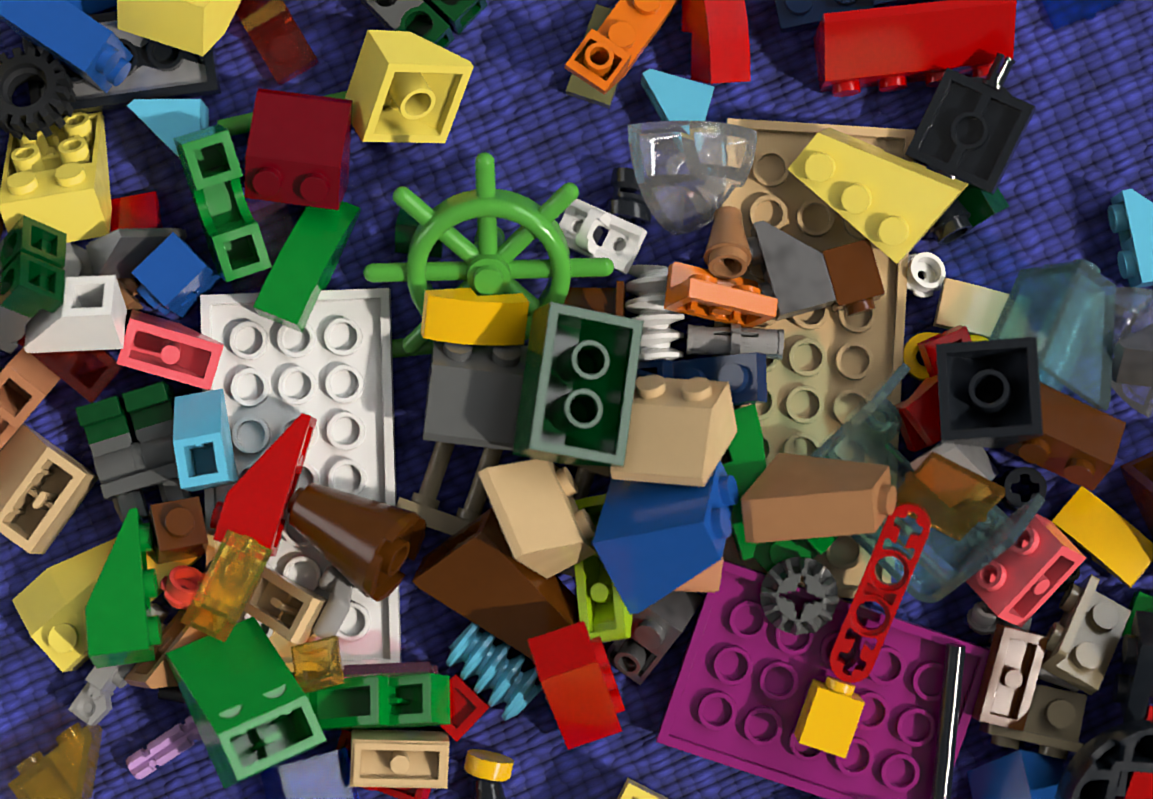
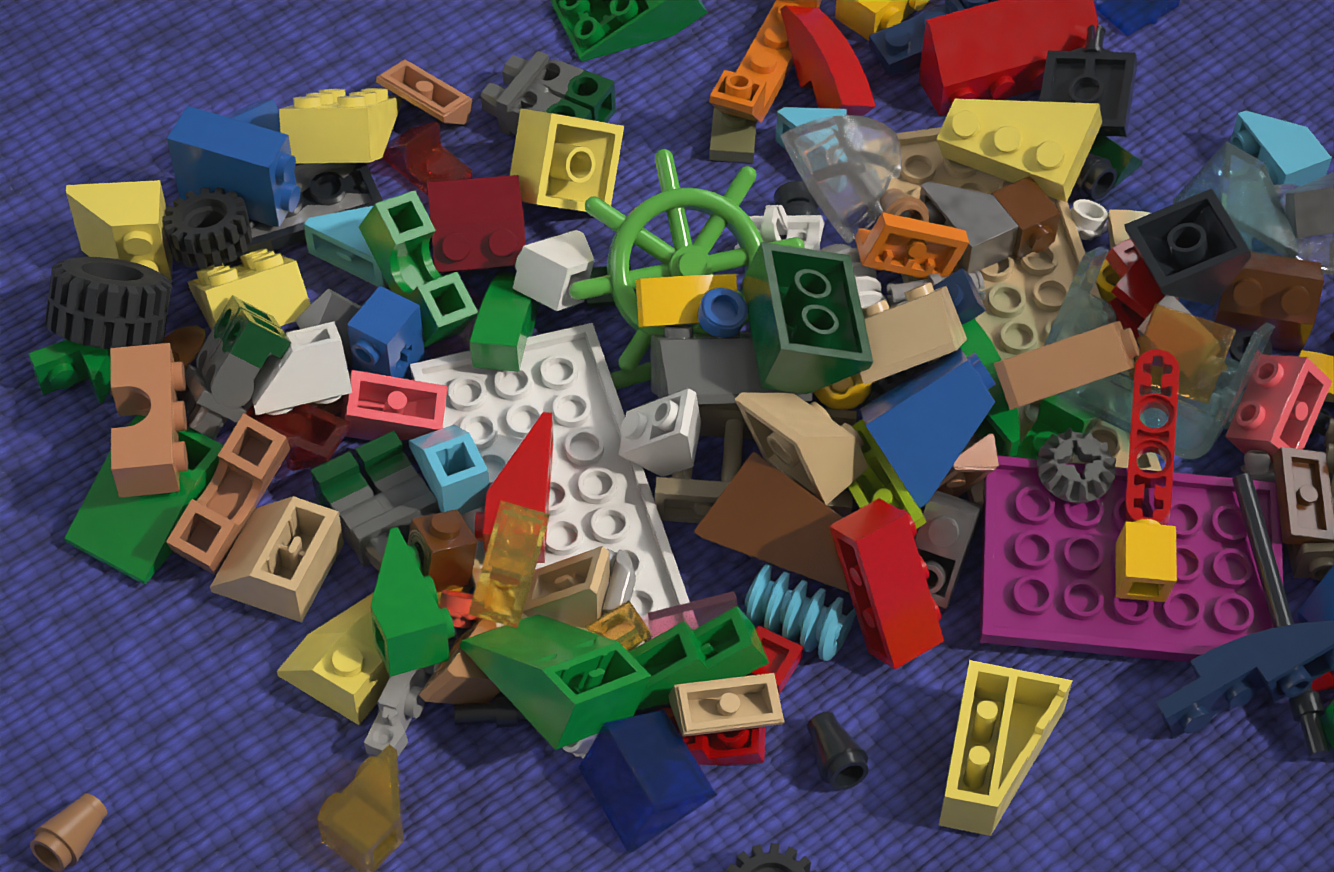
camera: 20 degrees left, 30 degrees down
(163, 749) = (478, 764): lavender axle -> none
(358, 535) = (627, 506): reddish brown cone -> none
(361, 229) = (551, 267): none -> white slope
(410, 461) = (662, 433): none -> white slope
(488, 765) = (817, 699): yellow tile -> none
(502, 347) = (722, 312): none -> blue tile

